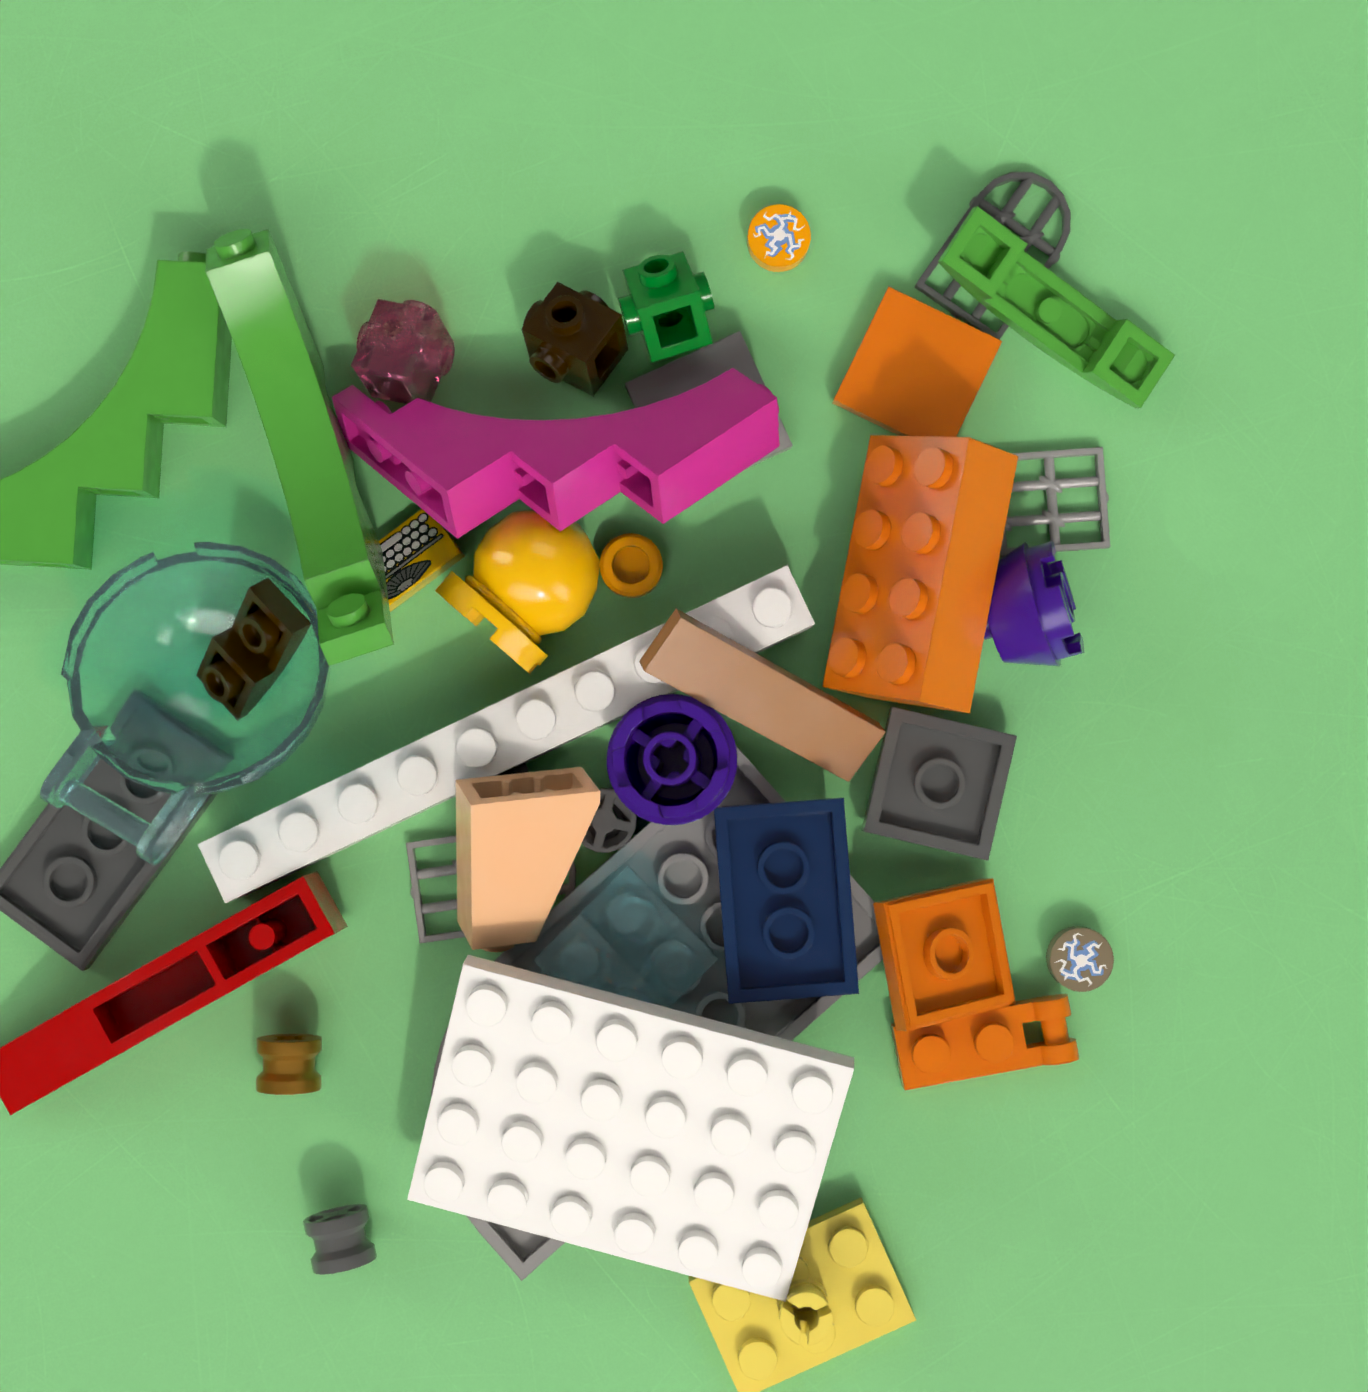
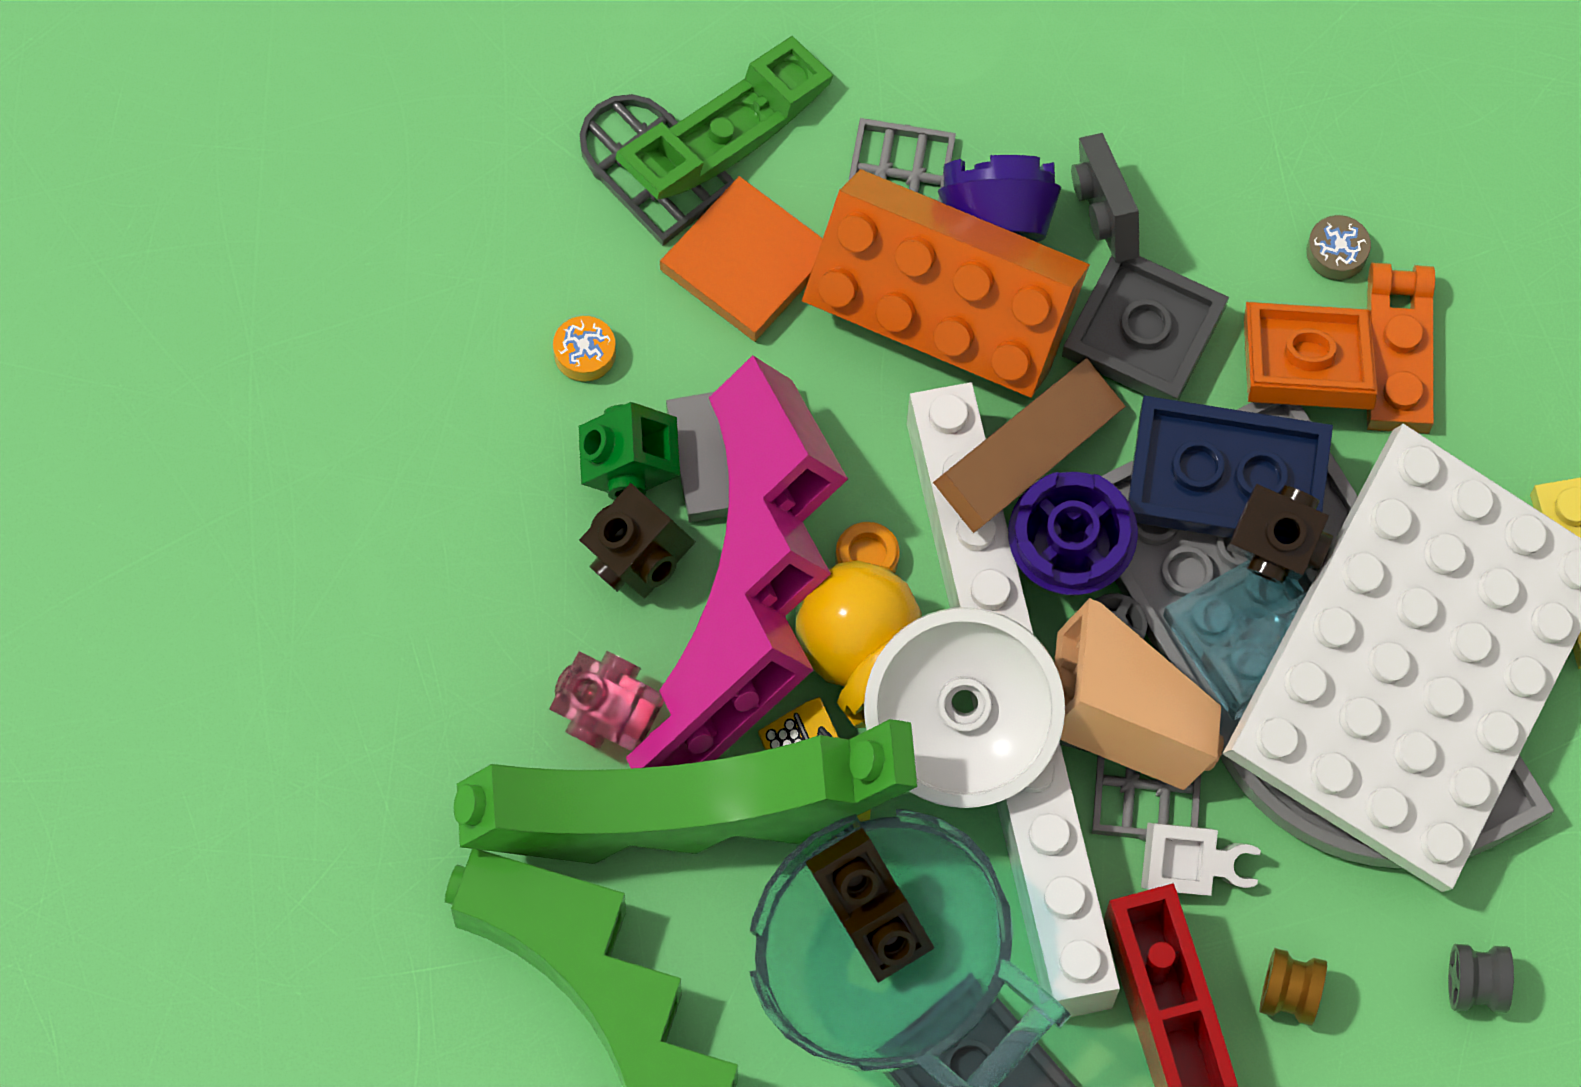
camera: 75 degrees left, 20 degrees down
(392, 938) = (1190, 859): none -> white plate
(414, 700) = (1009, 734): none -> white dish
(709, 966) = (1256, 538): none -> dark brown brick
(1044, 724) = (1111, 204): none -> dark grey plate

